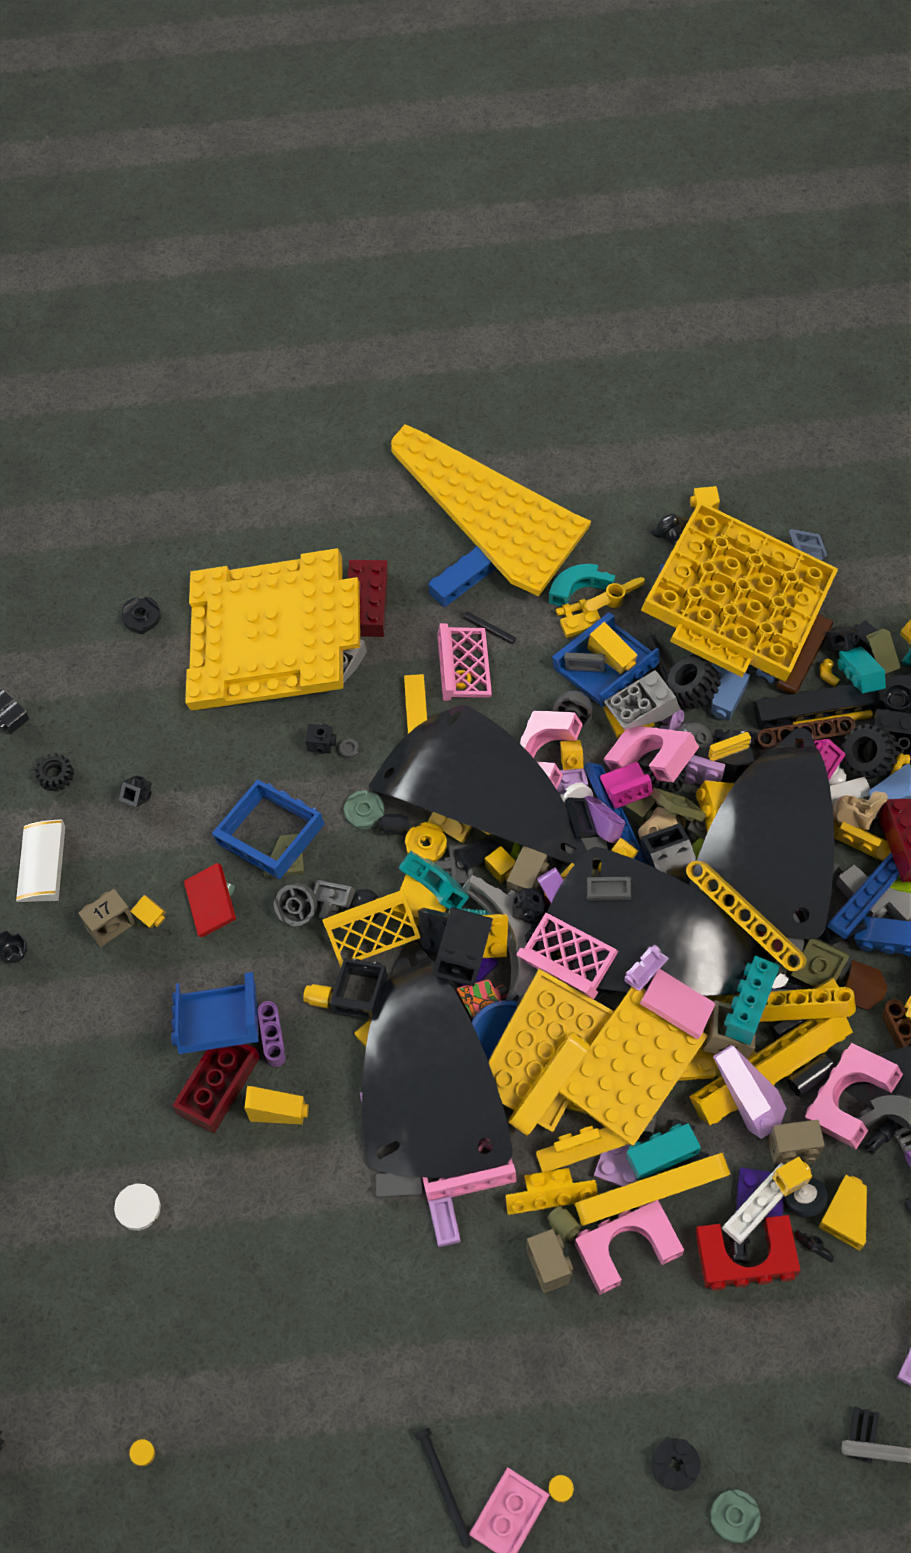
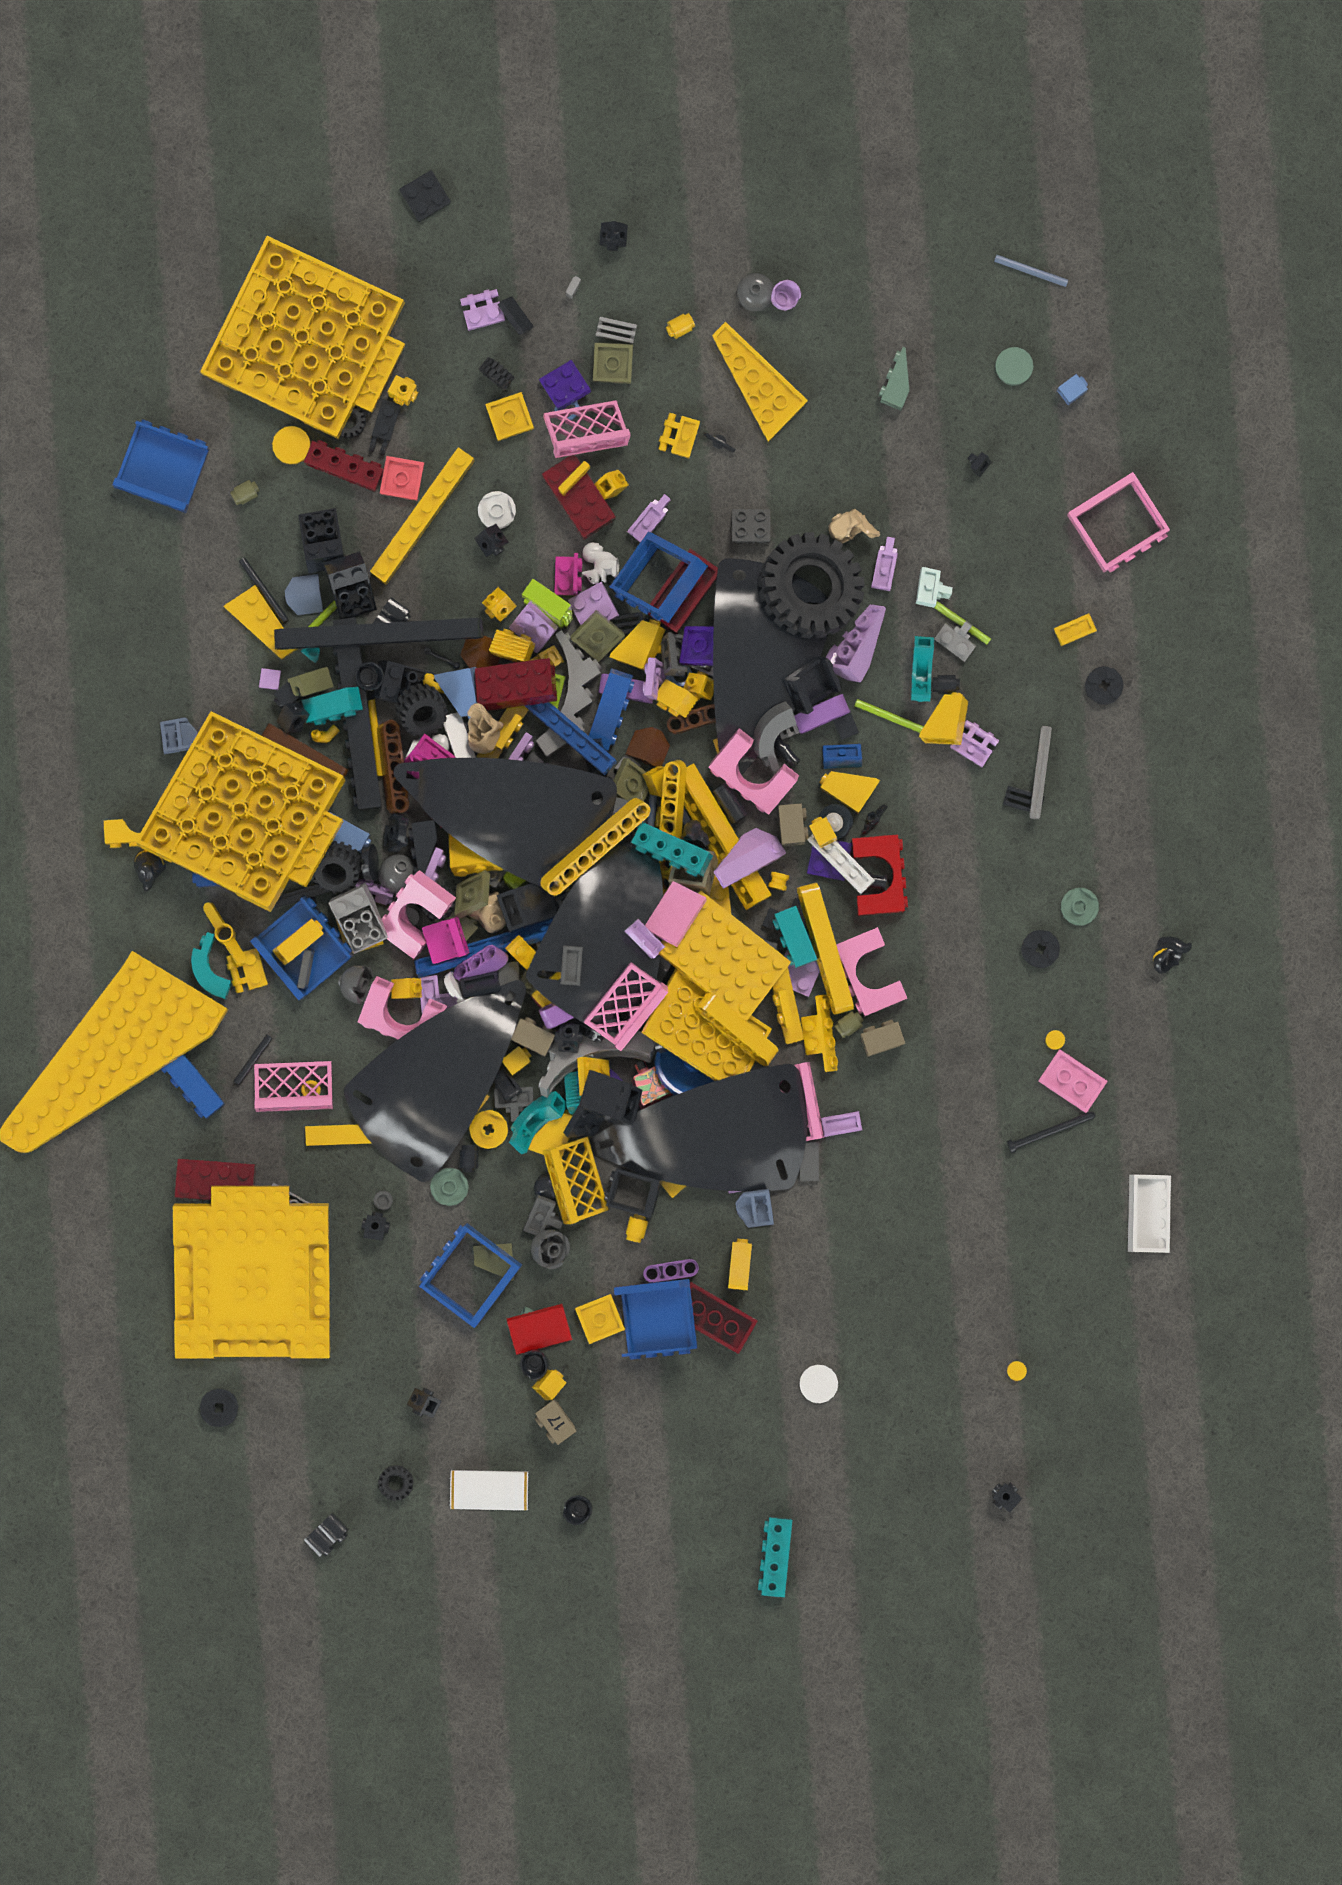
camera: 90 degrees left, 25 degrees up
(171, 897) = (534, 1364): none -> black hair
(219, 962) = (599, 1318): none -> yellow plate
(343, 1126) = (755, 1208): none -> sand blue slope
(702, 711) = (371, 862): none -> black tile
(727, 1134) = (778, 881): none -> yellow wheel
(729, 746) = (422, 842): yellow tile -> none
(769, 1031) = (695, 835): none -> black hair
(846, 851) = (525, 745): none -> lavender plate
(878, 620) = (270, 679): none -> lavender tile
(884, 1204) = (842, 756): none -> blue slope

